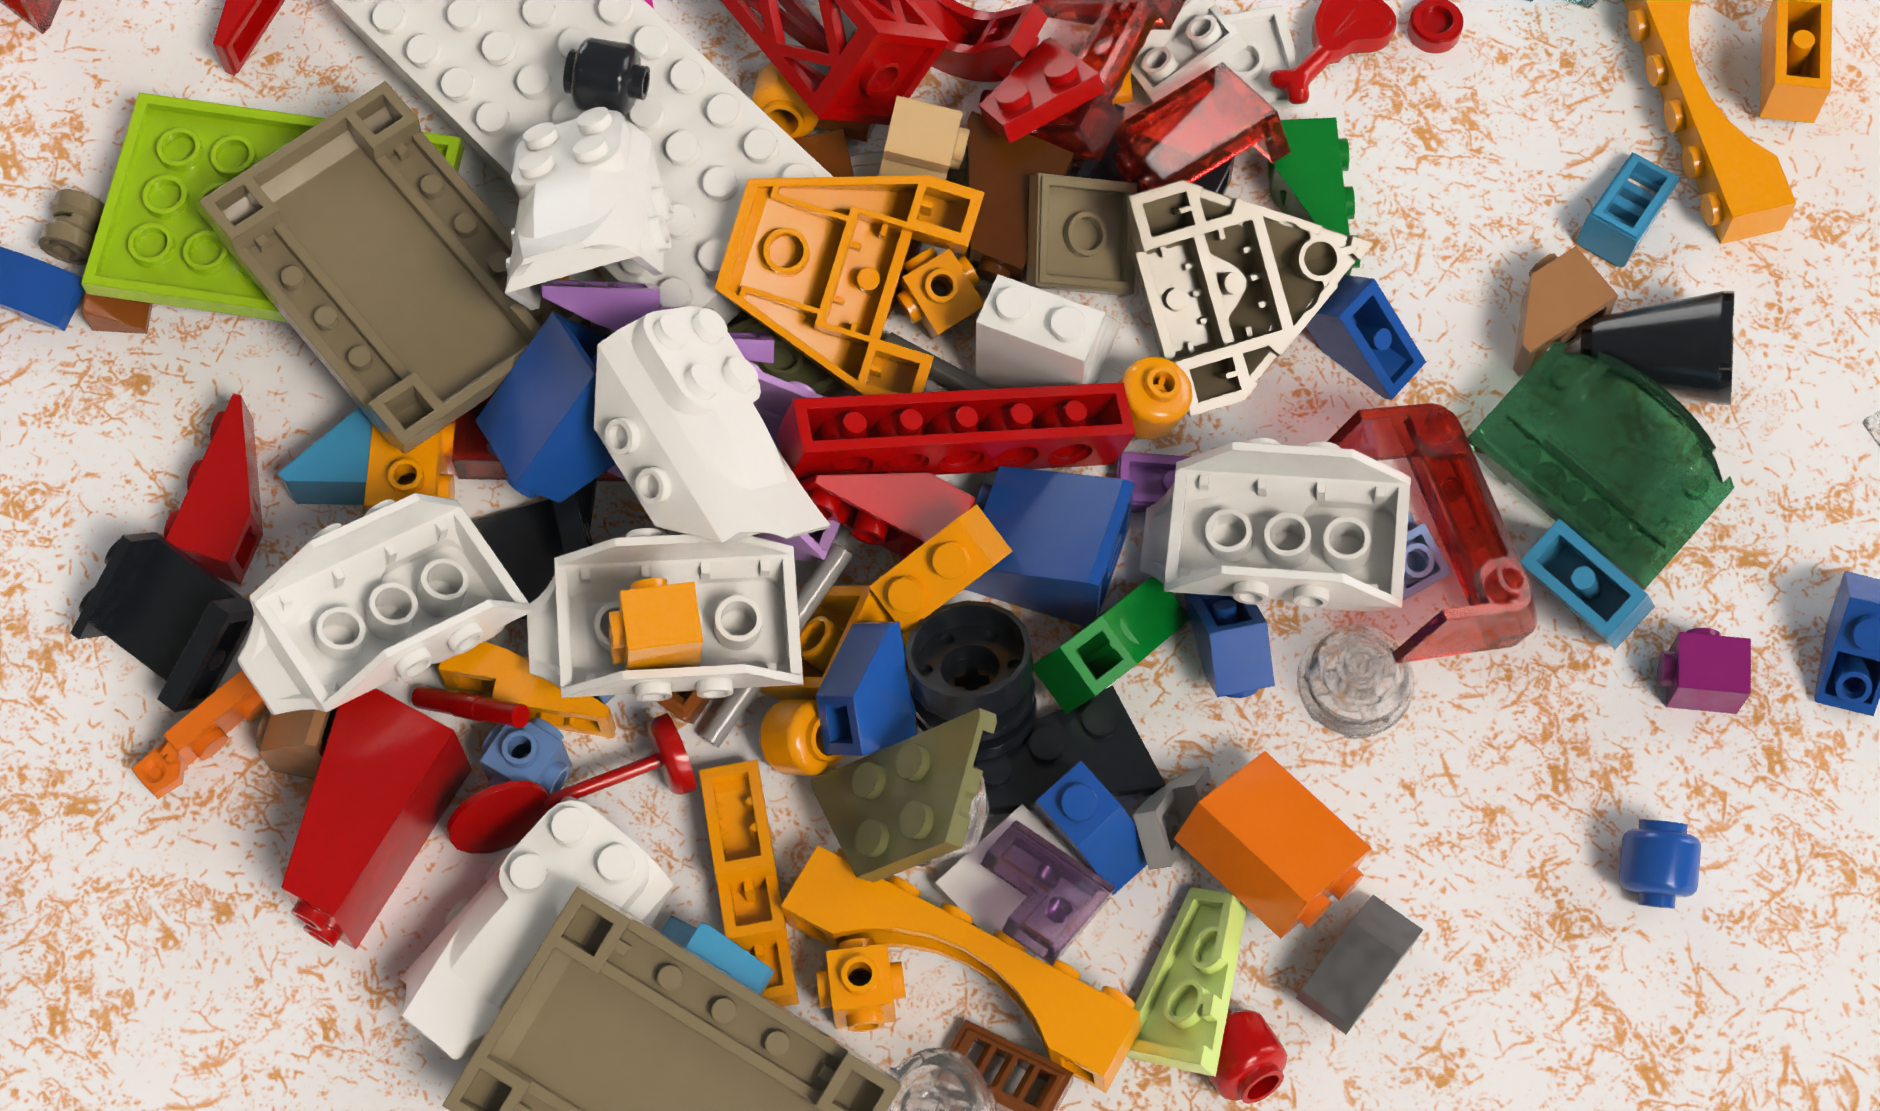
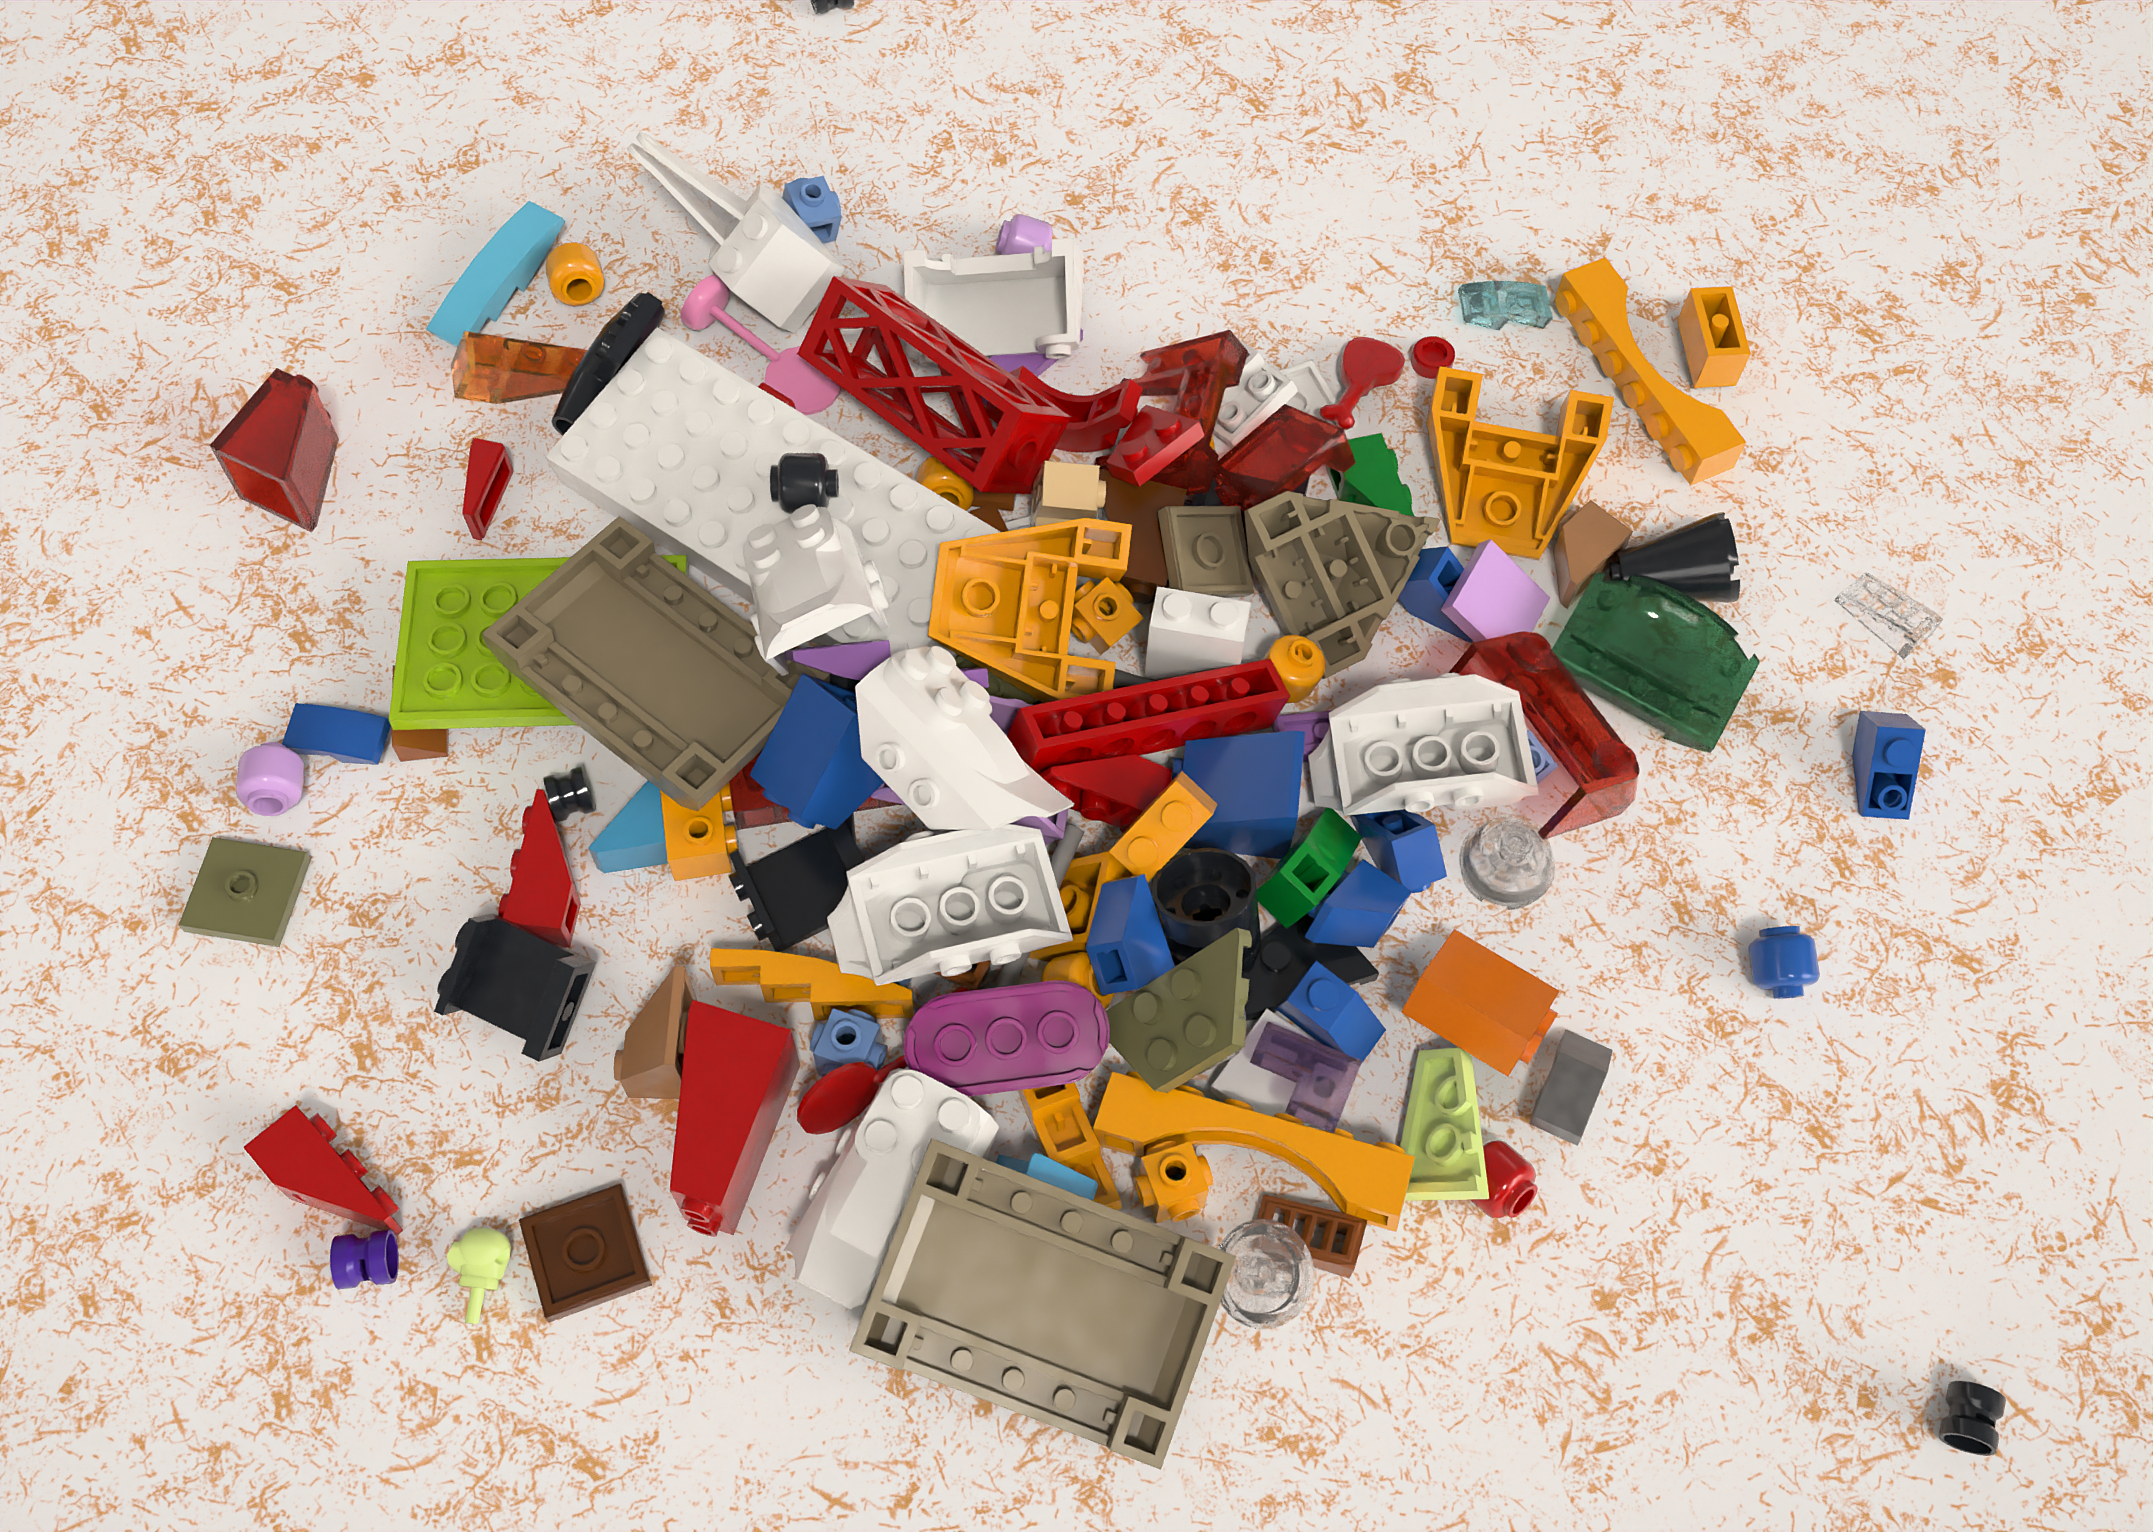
camera: 15 degrees left, 5 degrees down
(71, 927) = (481, 1261): none -> yellowish green piece
(72, 227) = (369, 680): dark tan wheel -> none
(187, 937) = (584, 1252): none -> reddish brown tile
(199, 734) = (567, 1070): orange hinge -> none
(271, 404) = (568, 794): none -> black wheel
(376, 604) = (703, 937): white slope -> none
(471, 706) = (796, 1010): red piece -> none
(656, 626) = (952, 909): light orange brick -> none
(704, 784) = (1008, 1037): none -> magenta tile
(1156, 705) = (1358, 908): none -> blue slope
(1164, 815) = (1389, 995): light grey slope -> none
(1424, 351) = (1494, 596): none -> lavender tile
(1483, 204) = (1509, 479): none -> light orange wedge
(1587, 584) = (1672, 754): dark azure brick -> none
(1611, 235) = (1616, 473): dark azure slope -> none
(1706, 671) = (1777, 806): magenta brick -> none

